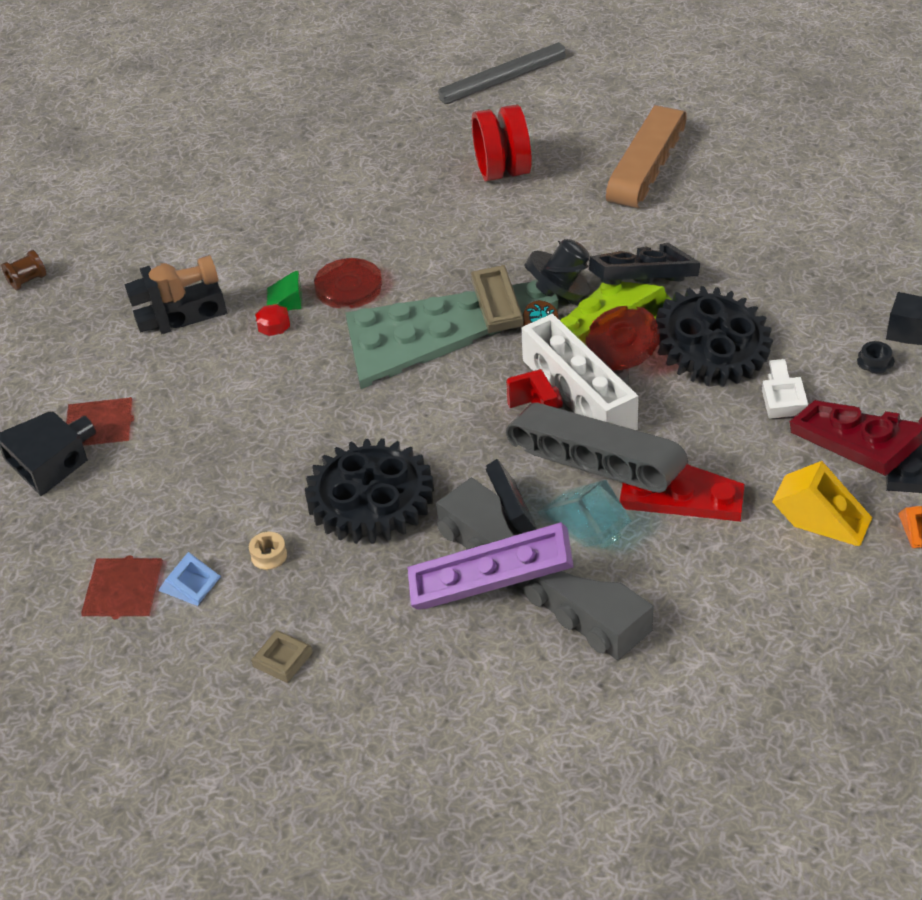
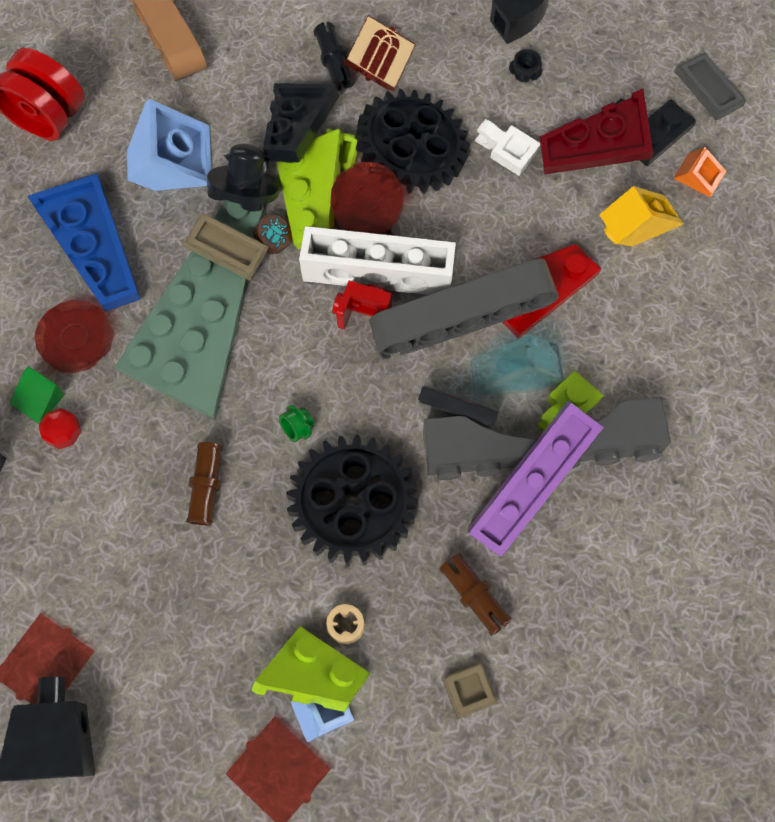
camera: 55 degrees left, 25 degrees up
(210, 549) = (312, 673): none -> lime wing
(302, 409) = (204, 483): none -> reddish brown pin
(363, 608) = (475, 594): none -> reddish brown pin
(400, 425) = (296, 423): none -> green plate
(431, 238) = (88, 235): none -> blue wing
(541, 223) = (168, 149): none -> light blue slope
(599, 565) = (572, 389): none -> lime plate
(733, 255) = (333, 55): none -> black pin
(769, 275) = (380, 53): none -> piece

